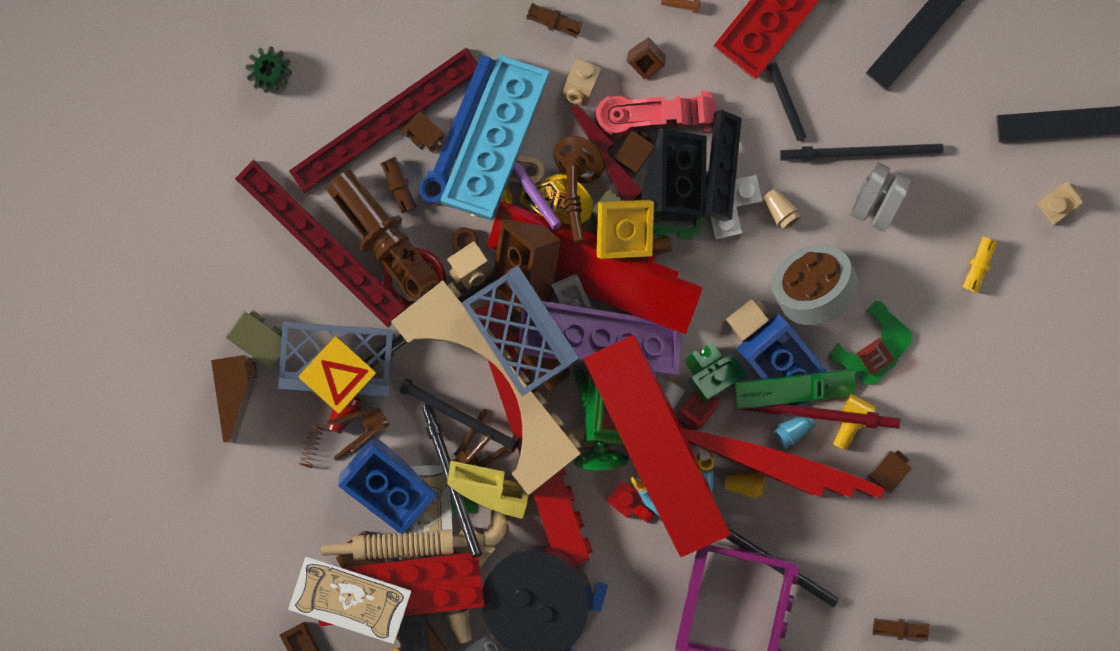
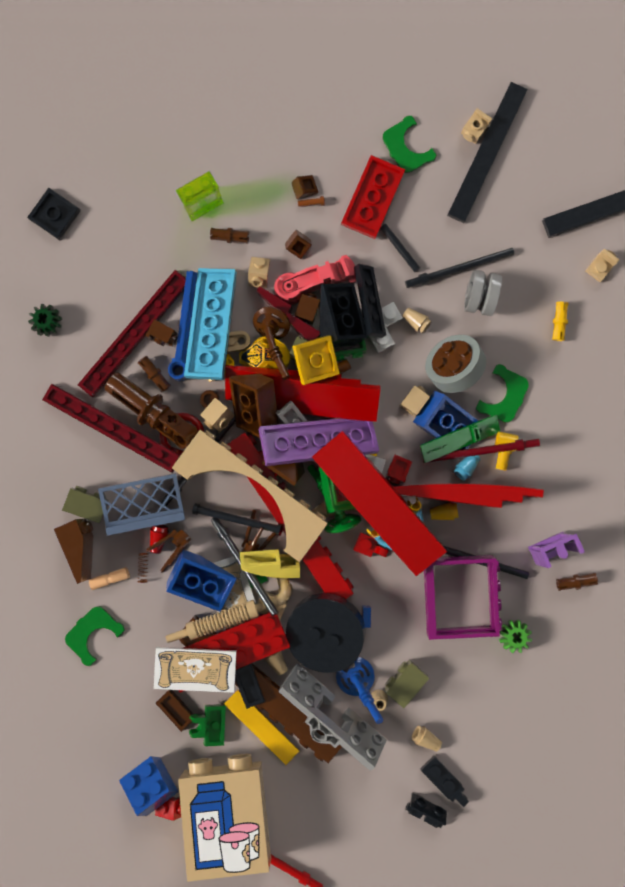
camera: 20 degrees left, 0 degrees up
(198, 515) = (79, 634): none -> green piece
(266, 448) = (106, 579): none -> light nougat piece
(337, 375) = (145, 515): yellow tile -> none
(536, 196) = (249, 355): medium lavender bar -> none
(540, 317) = (271, 435): sand blue fence -> none
(712, 373) = (401, 443): green plate -> none
(875, 356) = (507, 402): clear red tile -> none
(880, 573) = (555, 546): none -> medium lavender window
(890, 470) = (539, 476): reddish brown brick -> none

